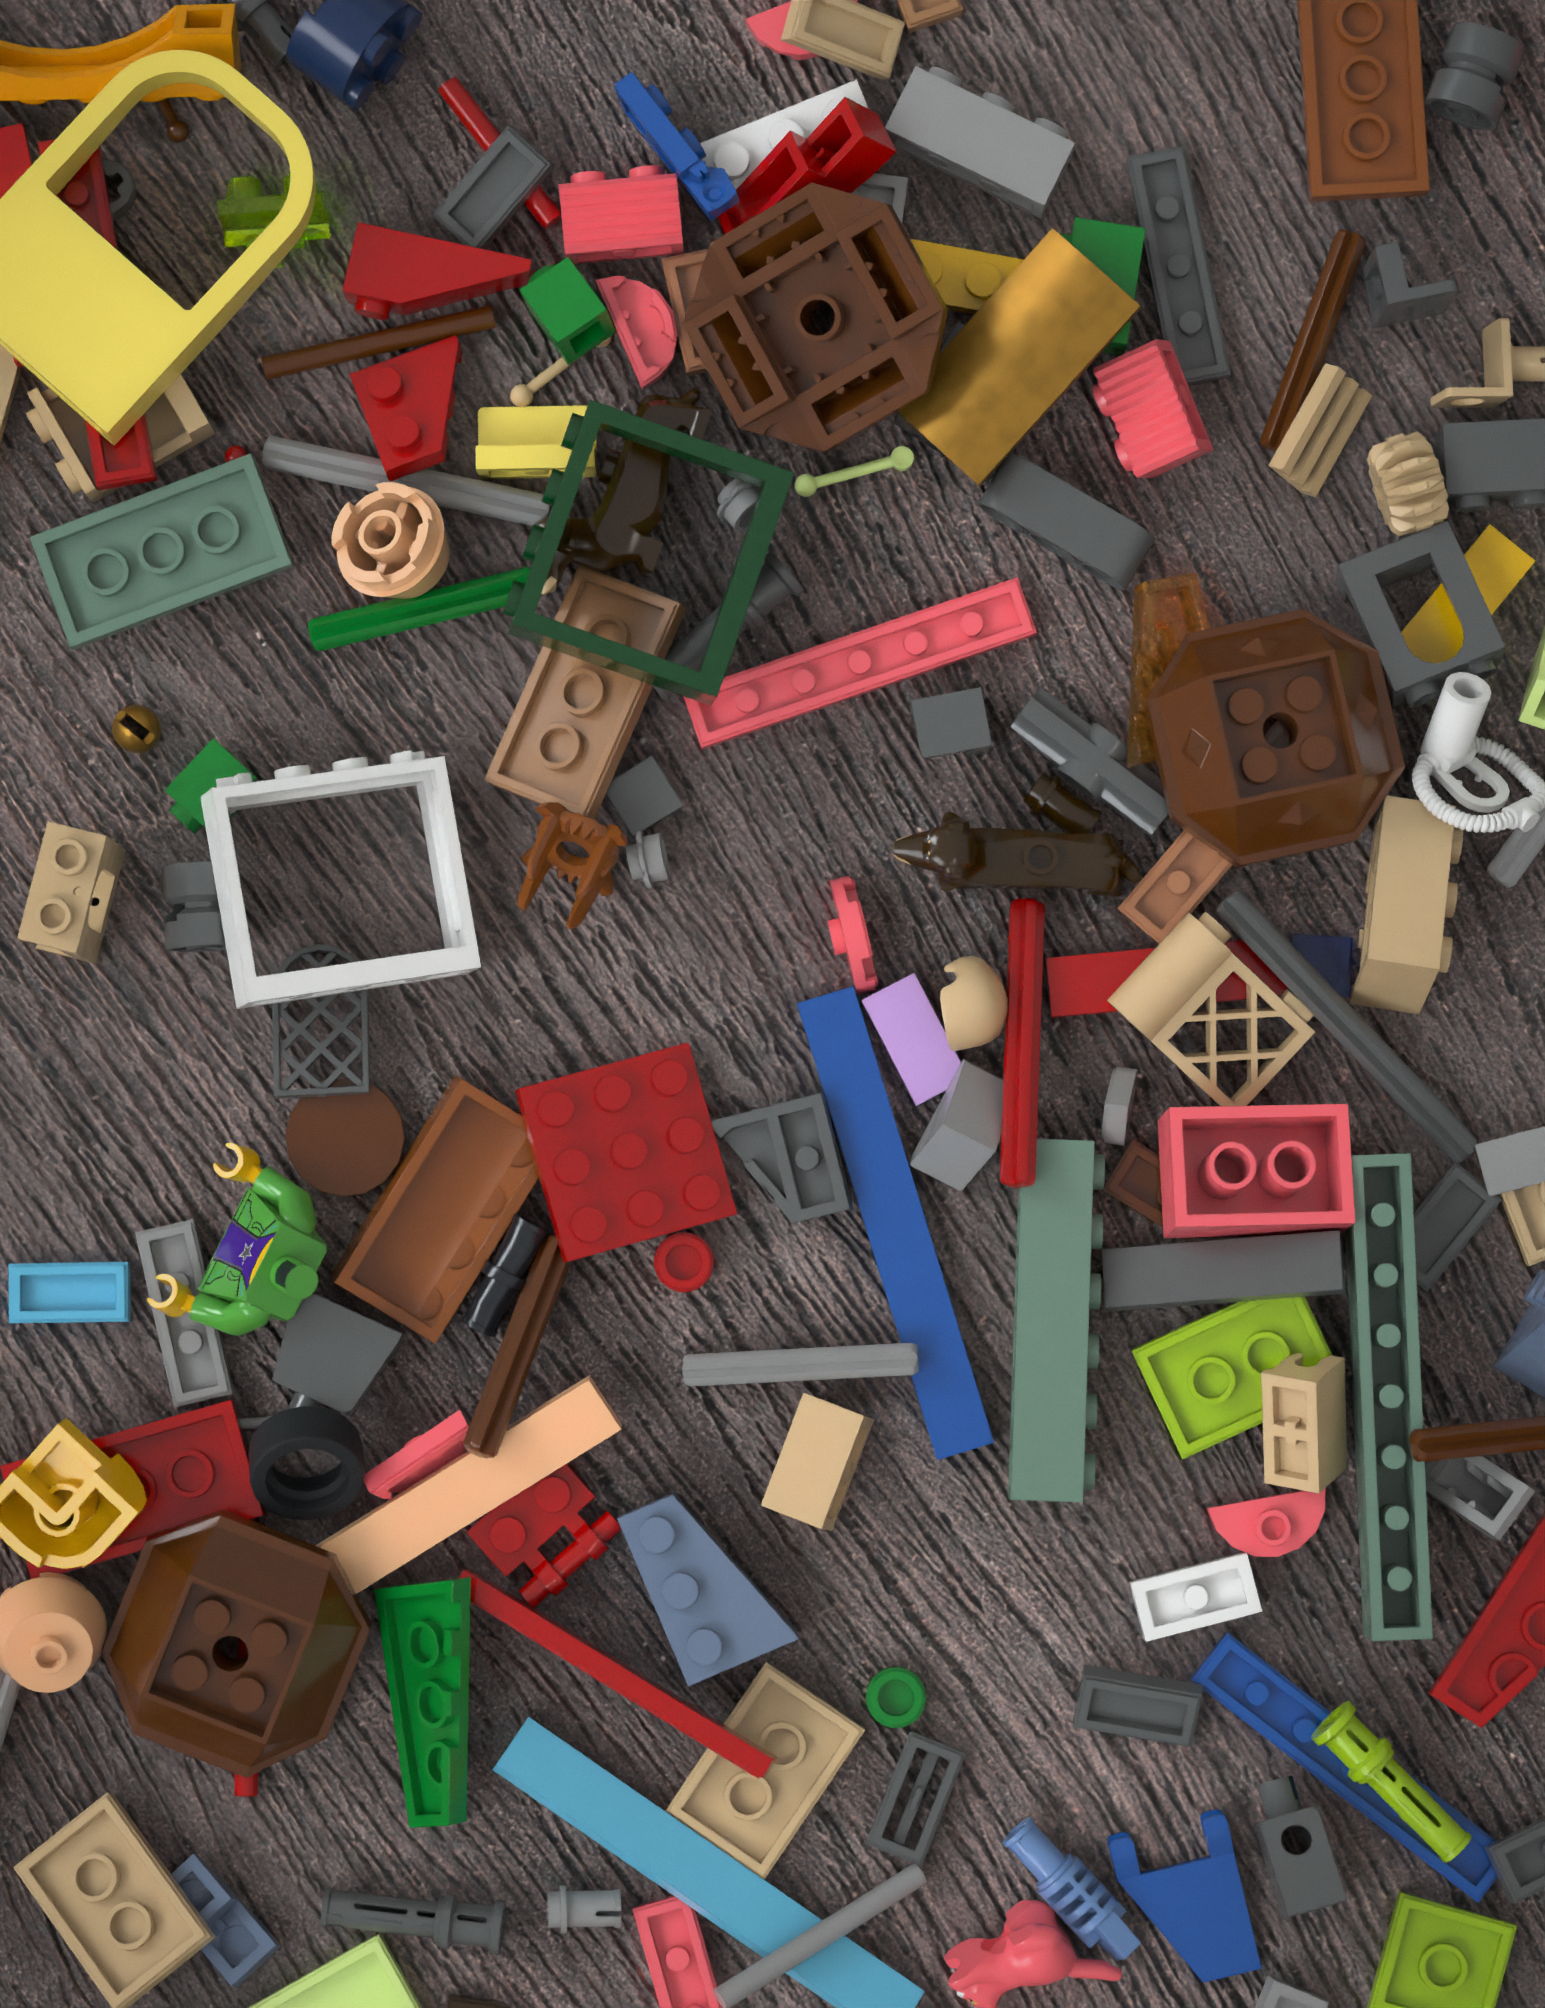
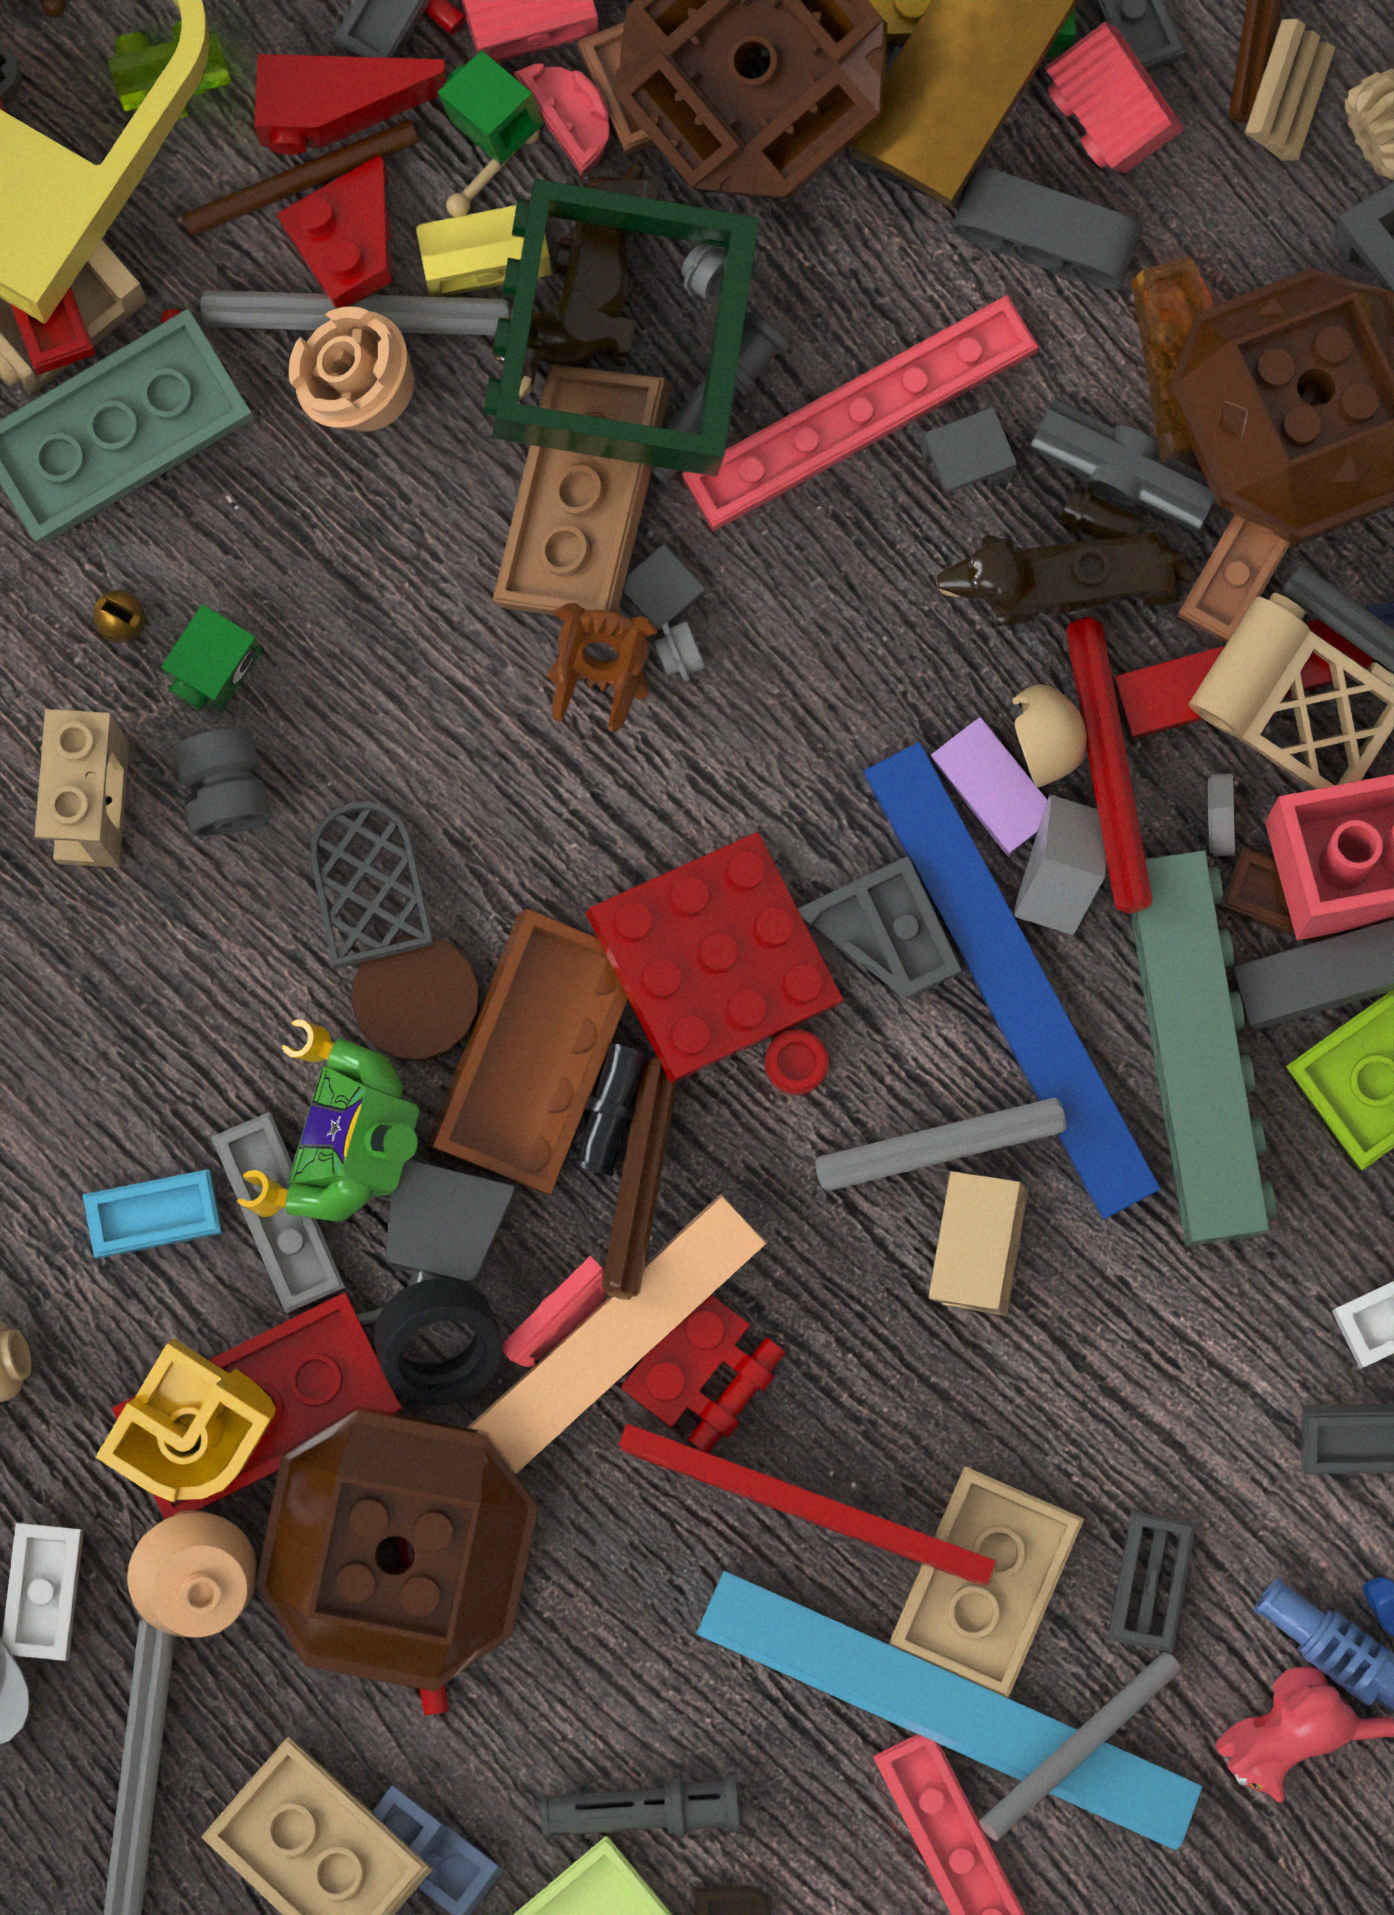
camera: 10 degrees left, 5 degrees down
(347, 778) = (349, 621): white window -> none
(411, 613) = (385, 444): green axle -> none
(428, 1684) = (611, 1554): green wing -> none
(583, 1908) = (820, 1766): light grey pin -> none
(699, 1592) = (880, 1401): sand blue wedge -> none
(851, 935) = (907, 690): coral plate -> none
(895, 1697) = (1109, 1478): green tile -> none
(900, 460) = (862, 200): yellowish green hinge -> none

